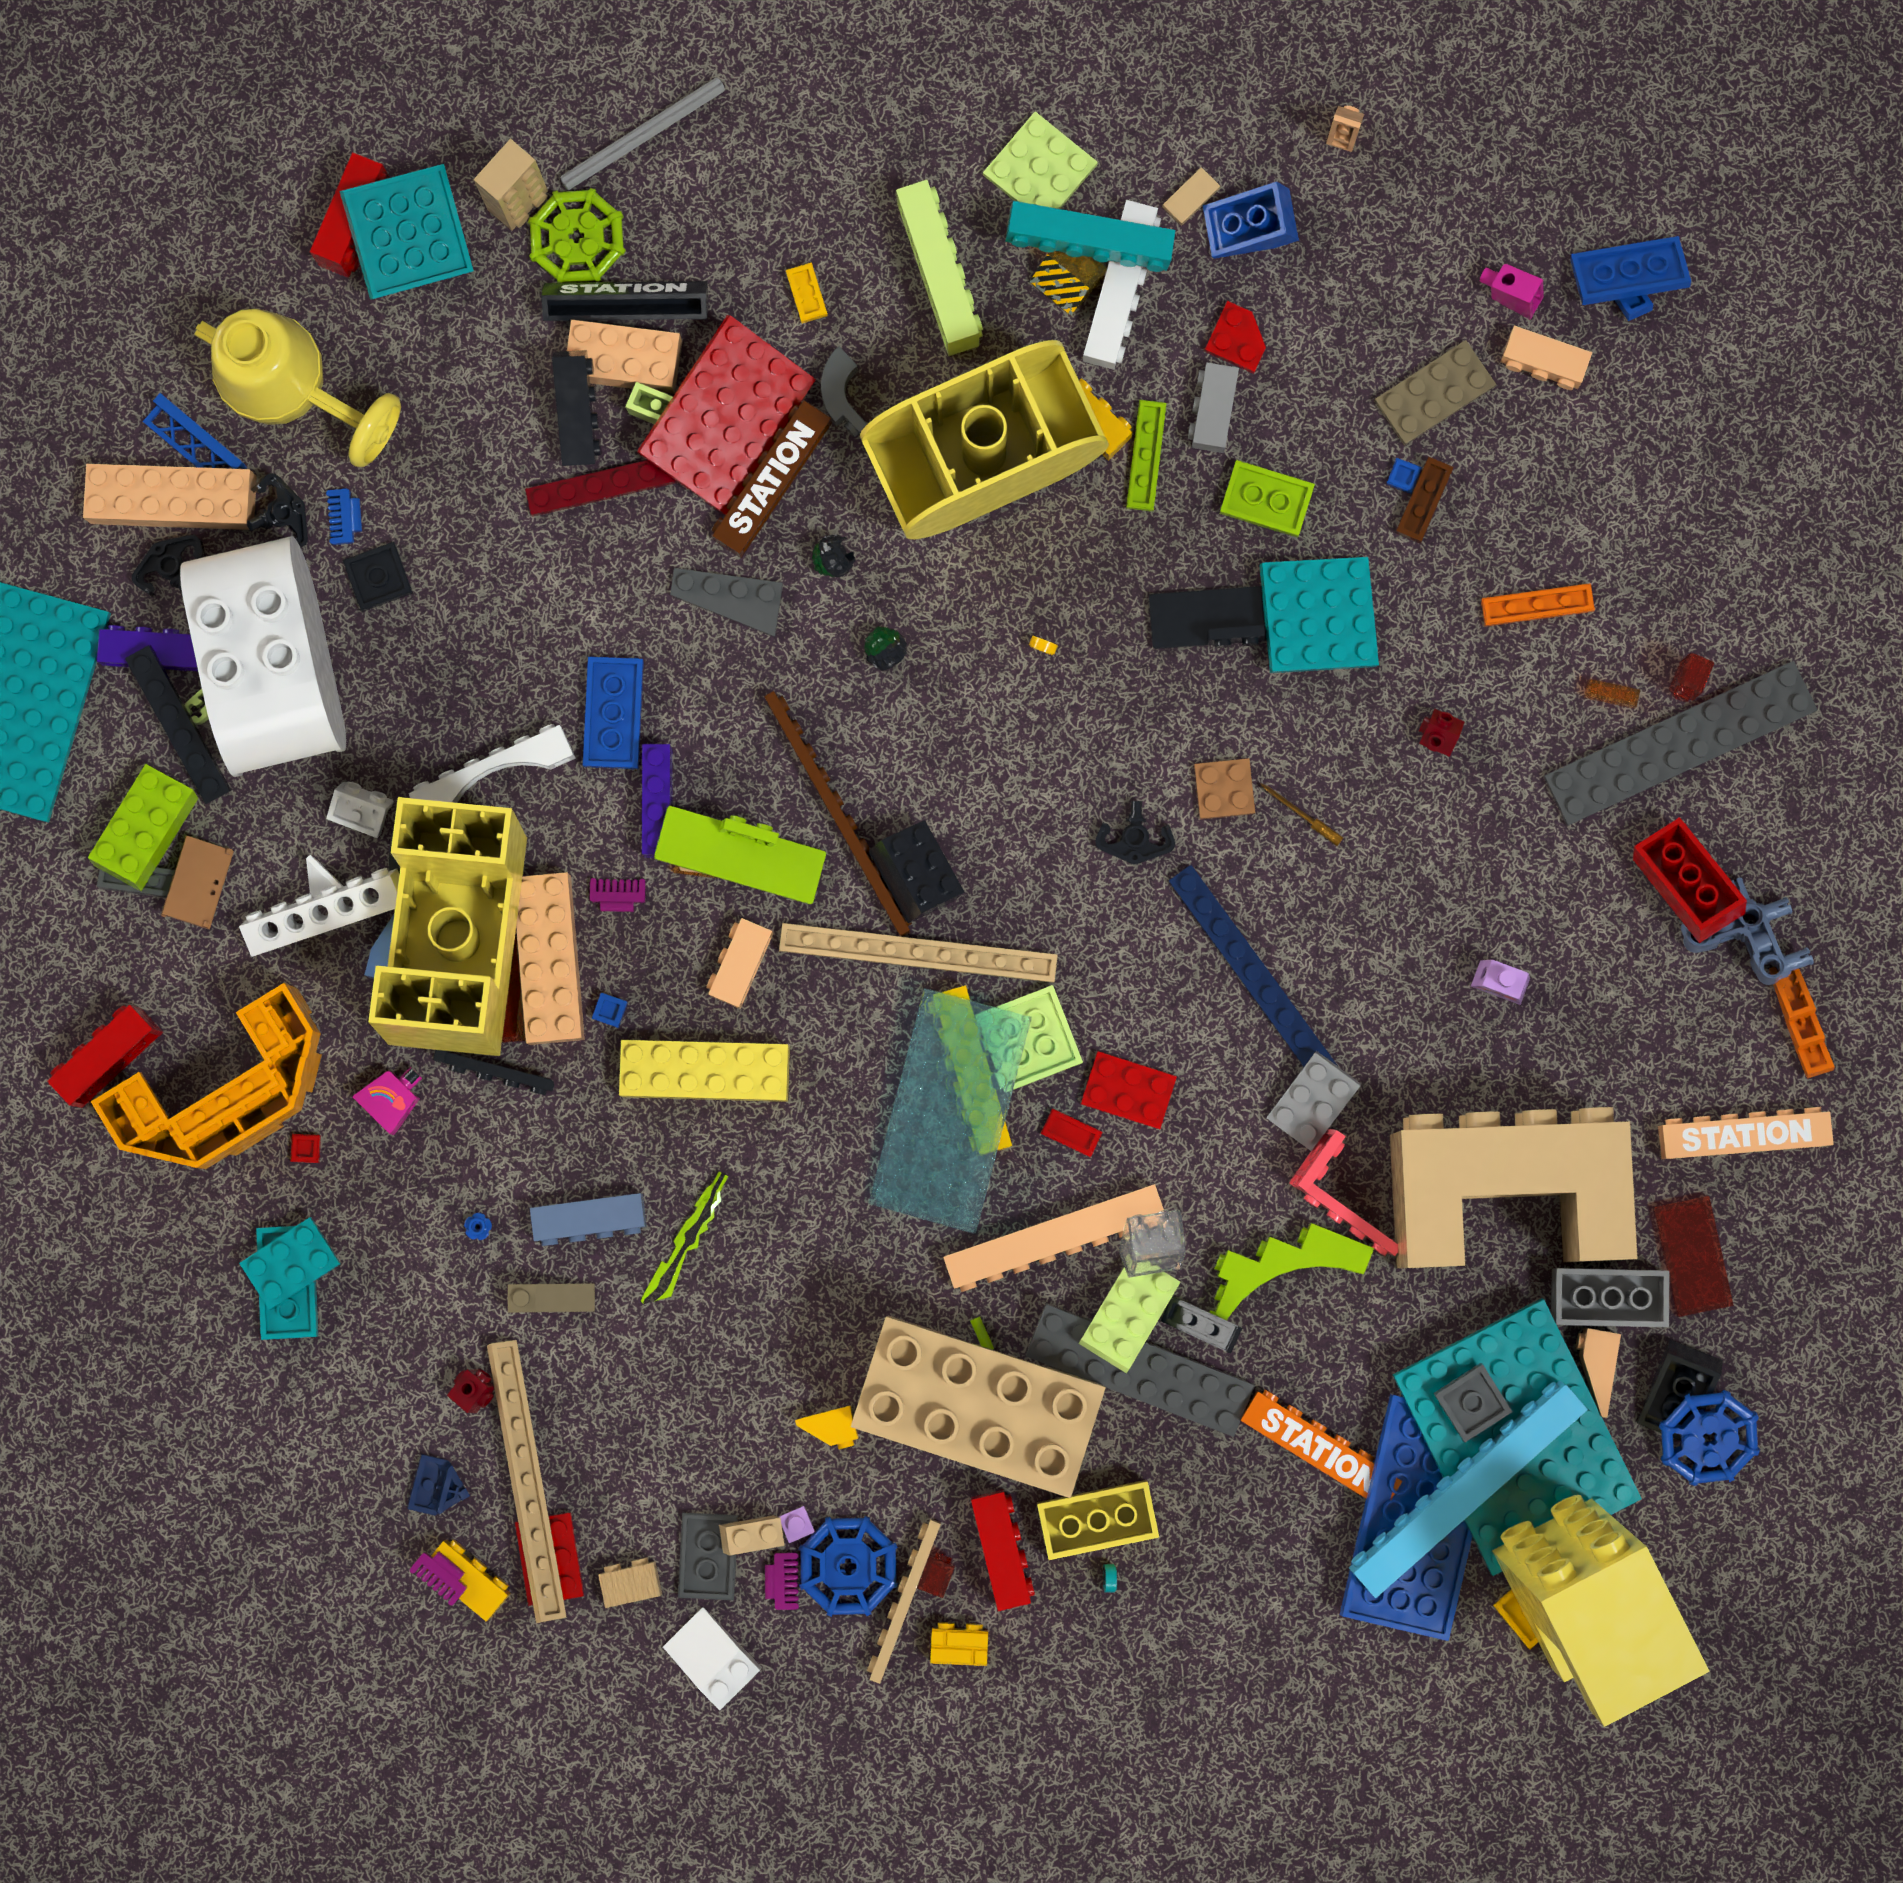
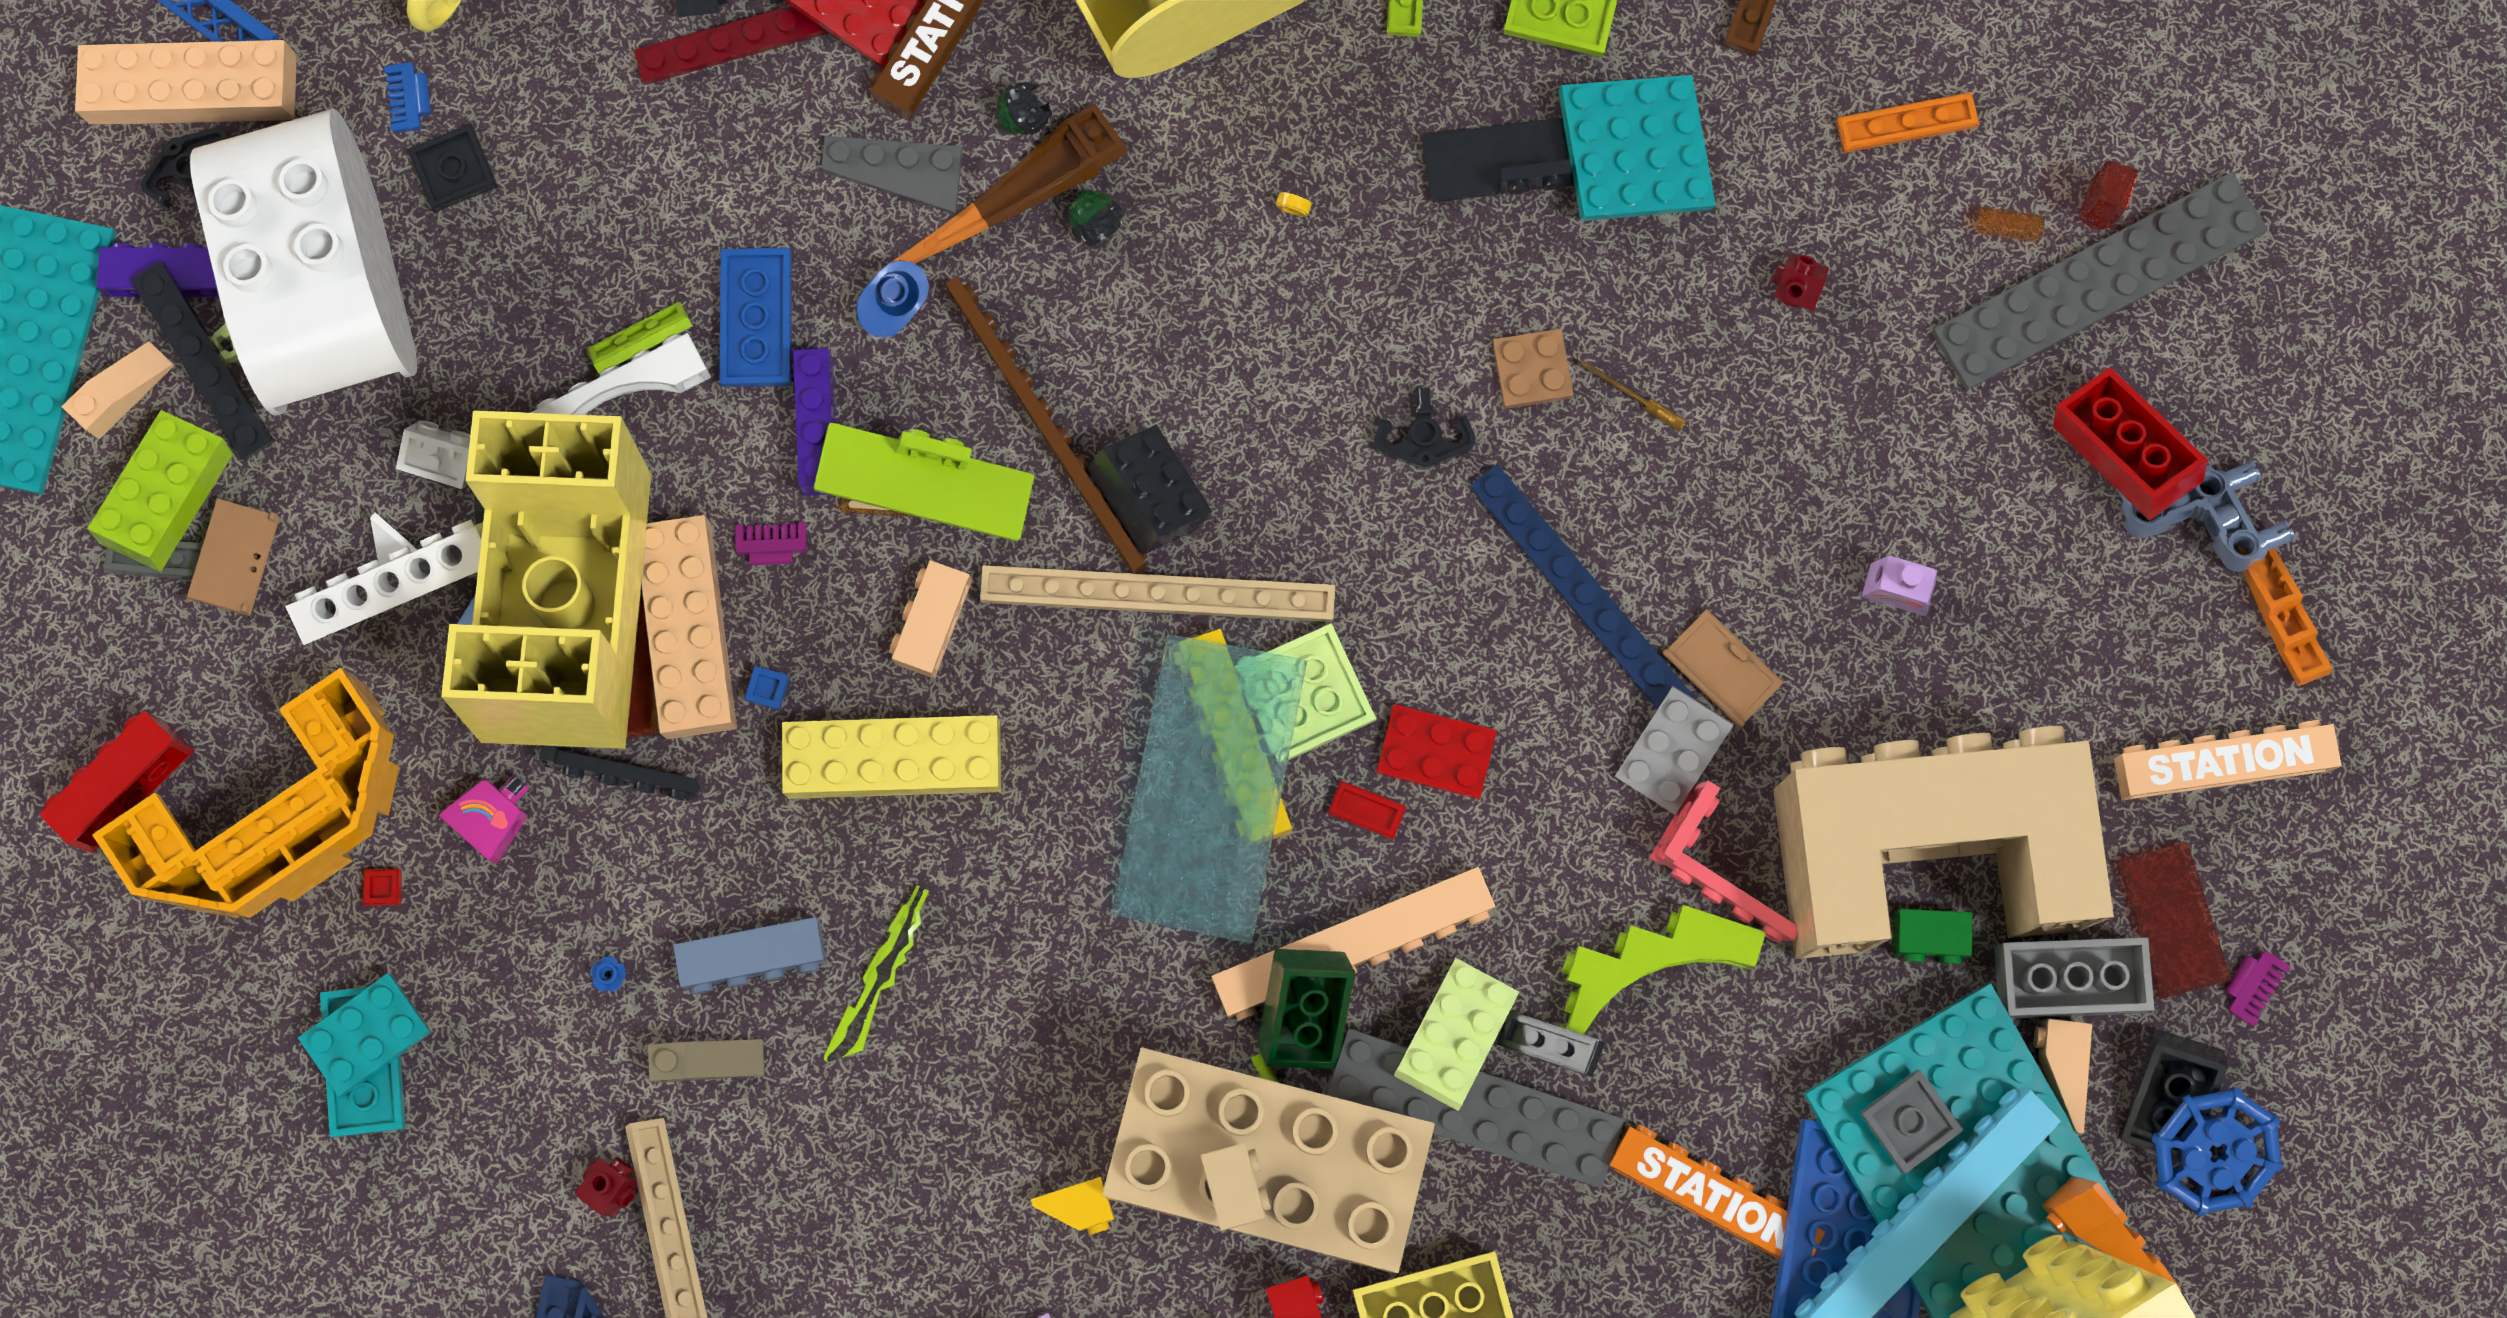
camera: 10 degrees left, 5 degrees down
(110, 742) = (117, 389): none -> light nougat slope
(284, 511) = (331, 91): black piece -> none
(521, 724) = (639, 337): none -> lime tile
(721, 705) = (892, 298): none -> blue piece
(858, 602) = (1057, 164): none -> reddish brown plate
(950, 1427) = (1234, 1186): none -> tan brick
(1014, 1287) = (1305, 1008): none -> dark green brick
(1153, 1243) = (1481, 941): clear slope -> none
(1357, 1037) = (1722, 674): none -> medium nougat door
(1505, 1257) = (1932, 934): none -> green brick
(1606, 1484) = (2094, 1218): none -> orange wedge
(1745, 1308) = (2248, 979): none -> magenta piece

